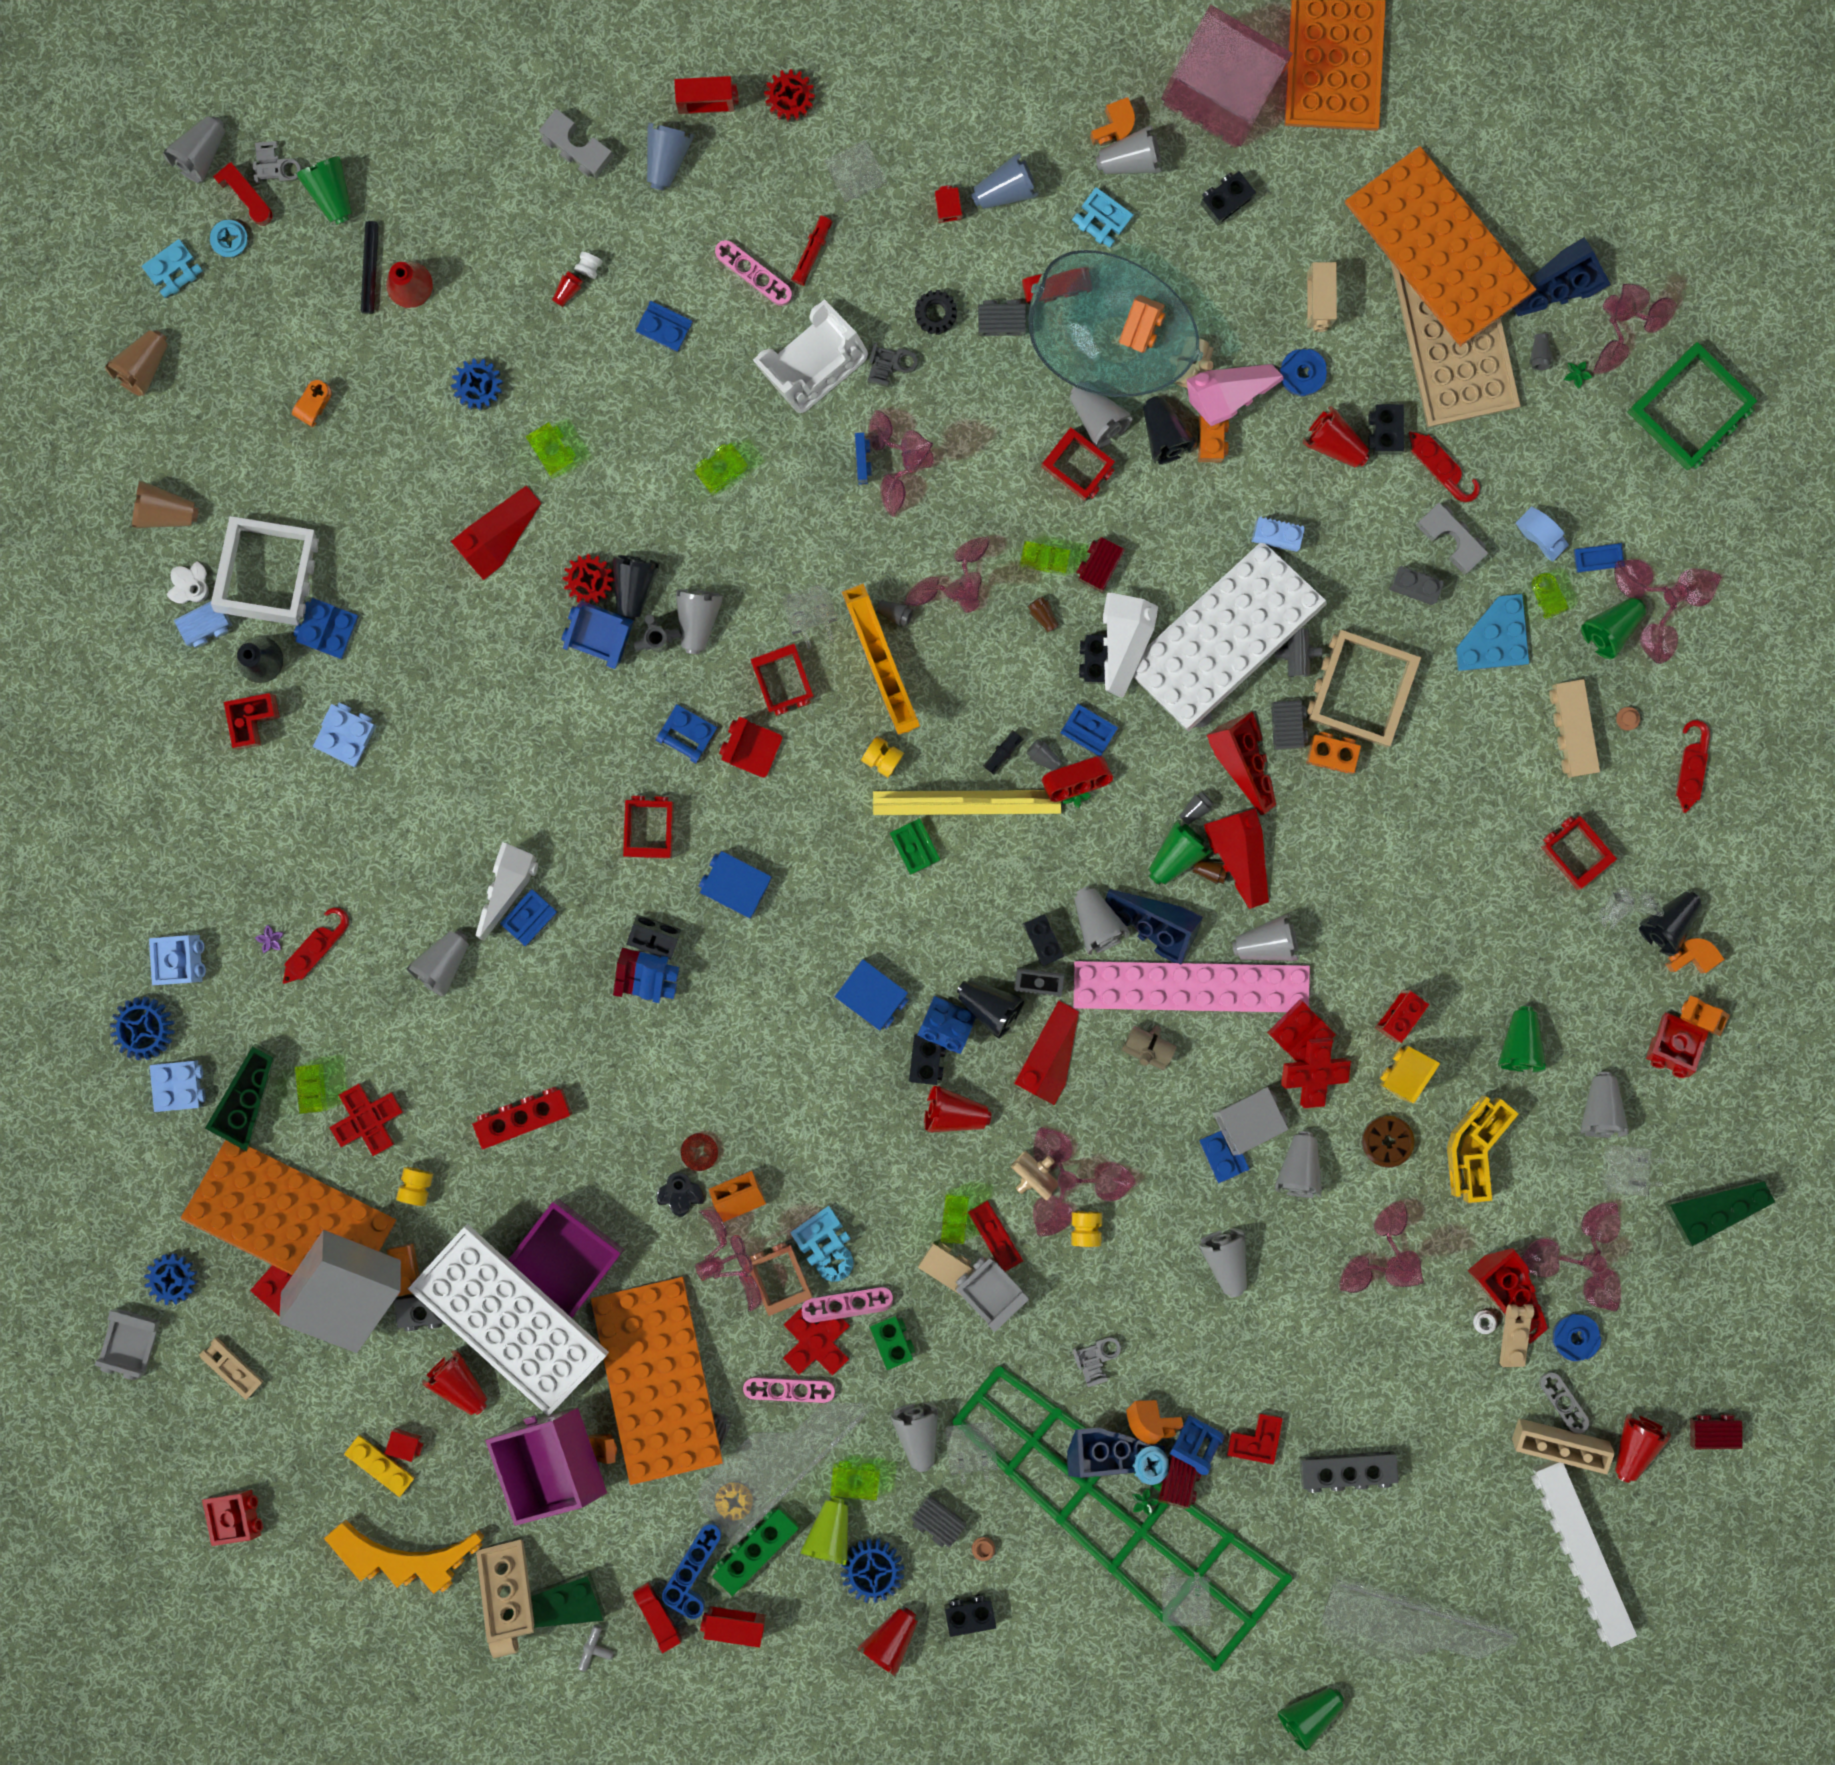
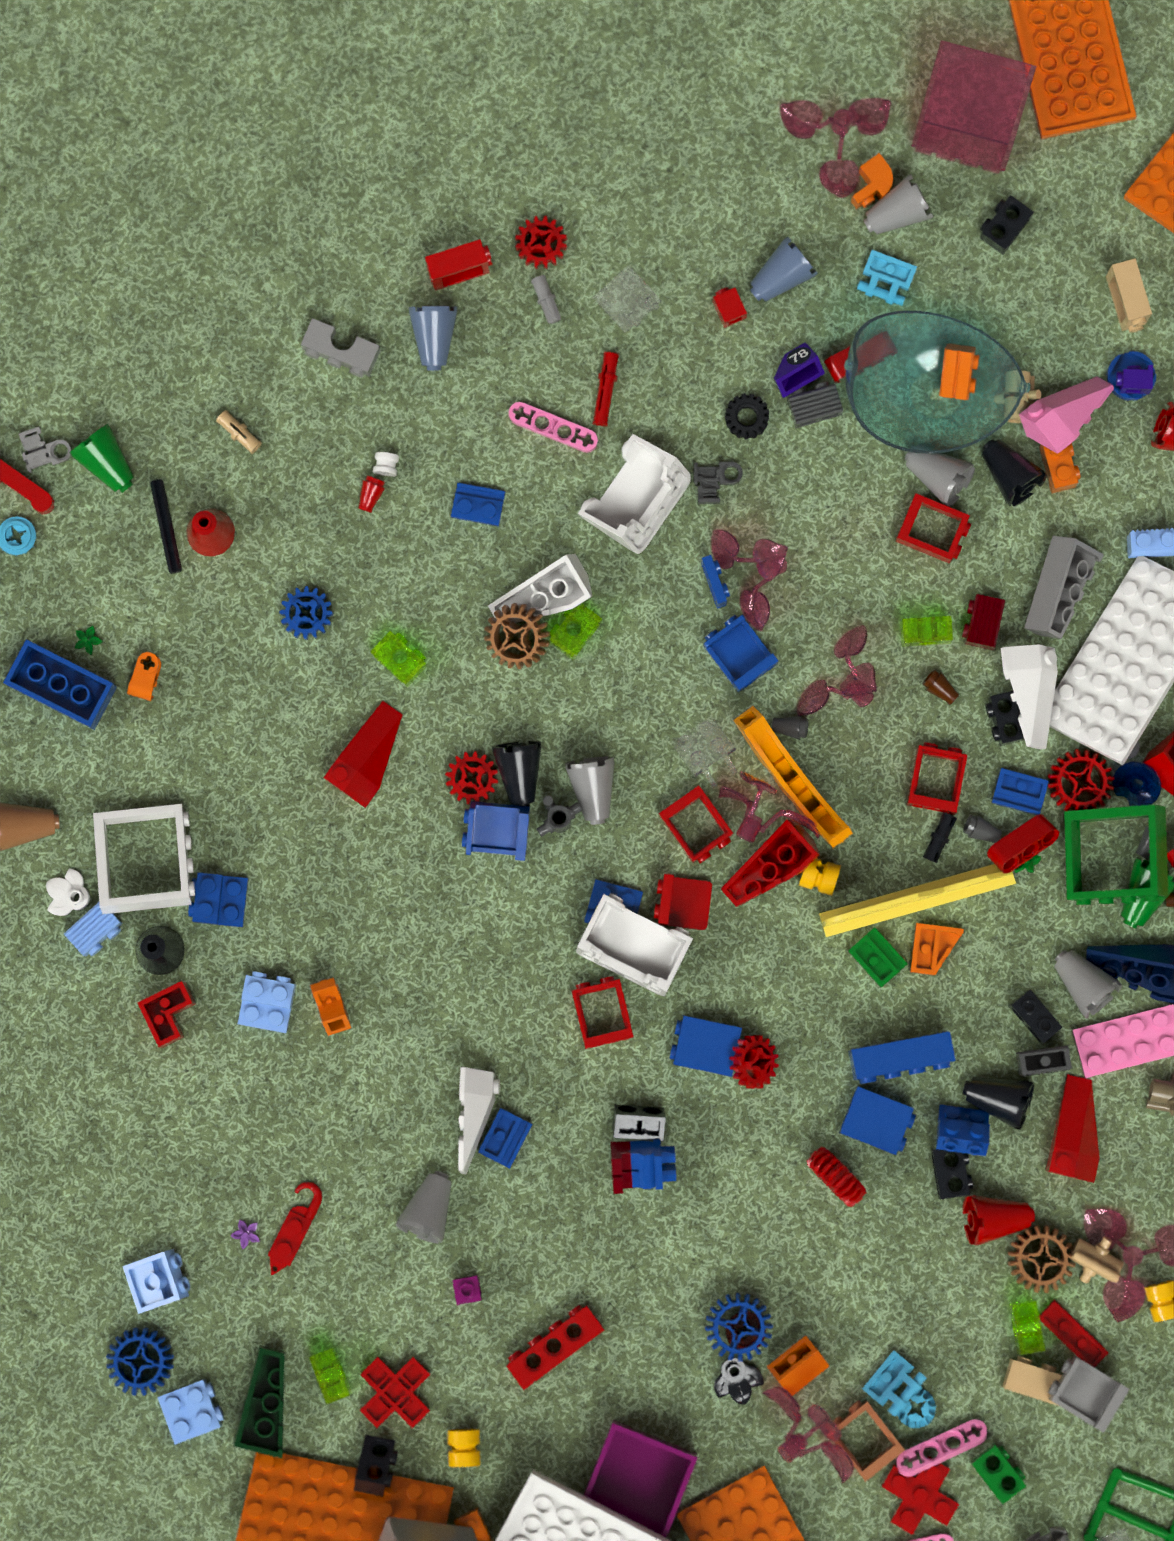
camera: 10 degrees left, 5 degrees down
(231, 388) = (60, 684): none -> blue brick
(269, 354) = (87, 639): none -> green plant
(326, 1179) = (372, 1465): none -> black brick
(401, 753) = (331, 1006): none -> orange brick
(453, 184) = (227, 420): none -> tan pin
(456, 1045) = (467, 1290): none -> magenta brick
(660, 450) = (510, 629): none -> medium nougat gear
(682, 1164) = (760, 1333): none -> blue gear
(693, 773) = (633, 945): none -> white windscreen
(704, 426) = (550, 591): none -> white wedge
(774, 910) = (753, 1061): none -> red gear
(780, 150) = (546, 299): none -> light grey axle
(819, 1035) = (836, 1176): none -> red gear
(830, 692) = (751, 823): none -> clear pink plant
(845, 733) = (776, 861): none -> red wedge
(867, 531) = (739, 652): none -> blue panel
(909, 942) = (902, 1055): none -> blue brick
(967, 851) = (932, 947): none -> orange wing
(993, 281) = (797, 369): none -> dark purple slope
(1000, 1167) = (1040, 1270): none -> medium nougat gear
(1004, 719) = (930, 803): none -> red window
(1130, 62) = (868, 114): none -> clear pink plant
(1132, 751) = (1070, 777): none -> red gear
(1180, 550) = (1060, 586): none -> light grey wedge
(1194, 822) = (1157, 847): none -> green window
(1196, 762) = (1135, 793): none -> clear blue dish
(1304, 377) = (1135, 380): none -> dark purple brick

